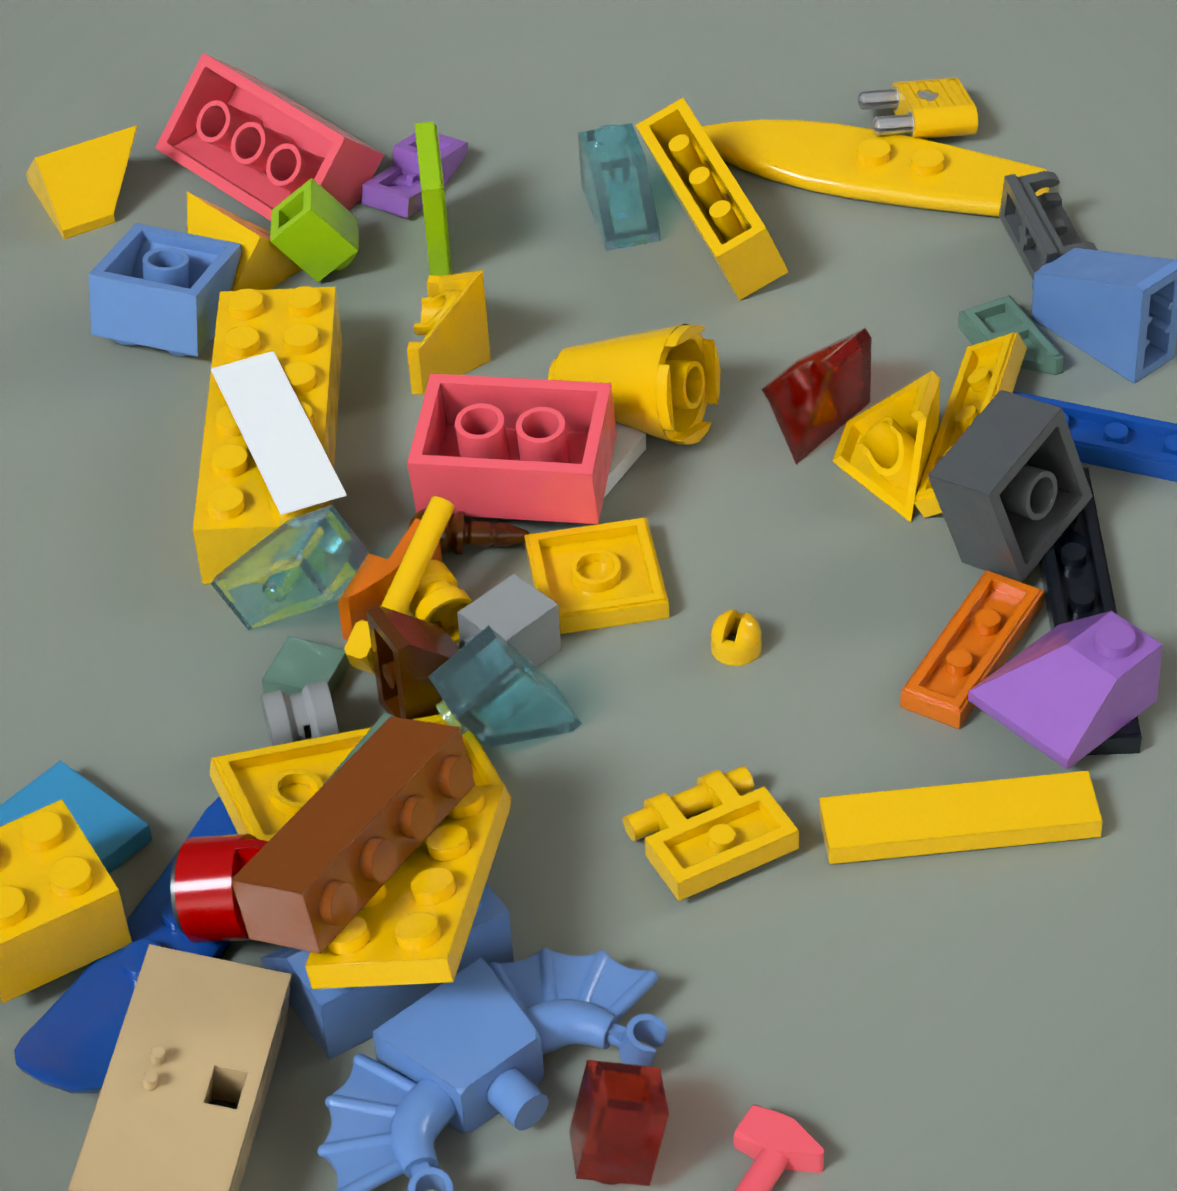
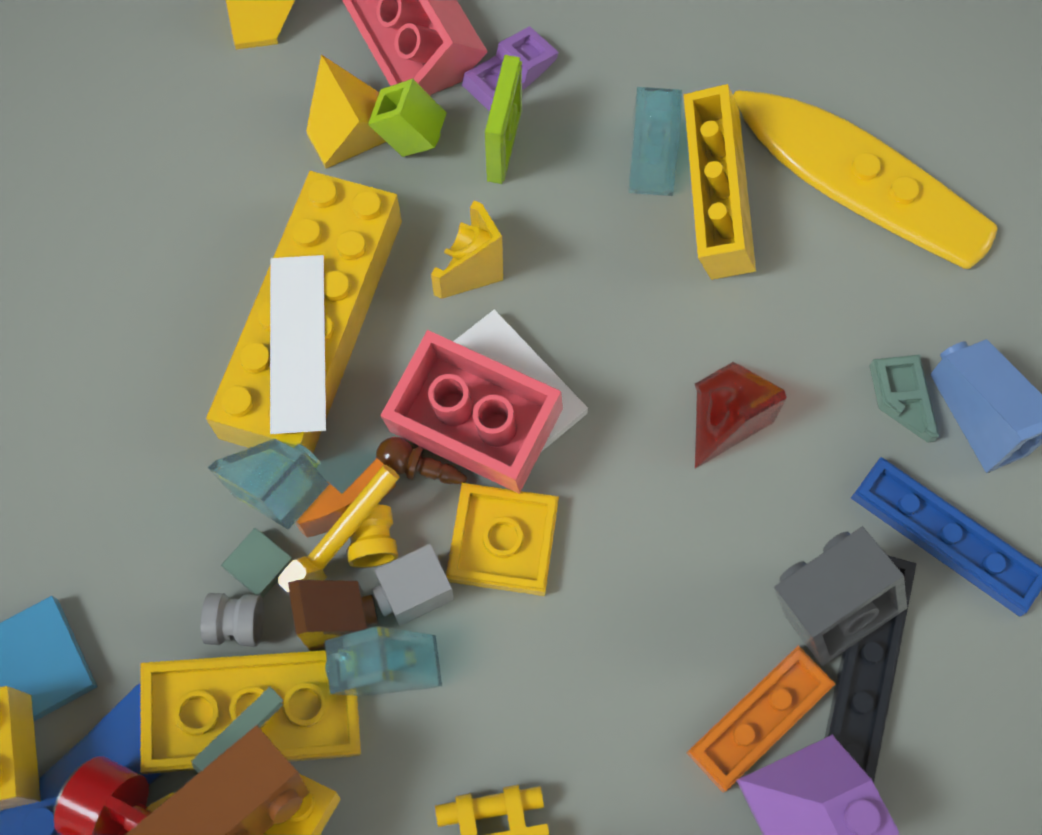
camera: 15 degrees right, 25 degrees up
(161, 289) = (276, 141): medium blue slope -> none
(656, 379) = (599, 364): yellow cone -> none
(747, 642) = (594, 648): yellow hinge -> none
(892, 443) = (768, 488): yellow slope -> none
(923, 109) = (927, 130): yellow piece -> none
(982, 374) = (841, 483): yellow tile -> none
(1037, 222) = (971, 297): dark grey hinge -> none

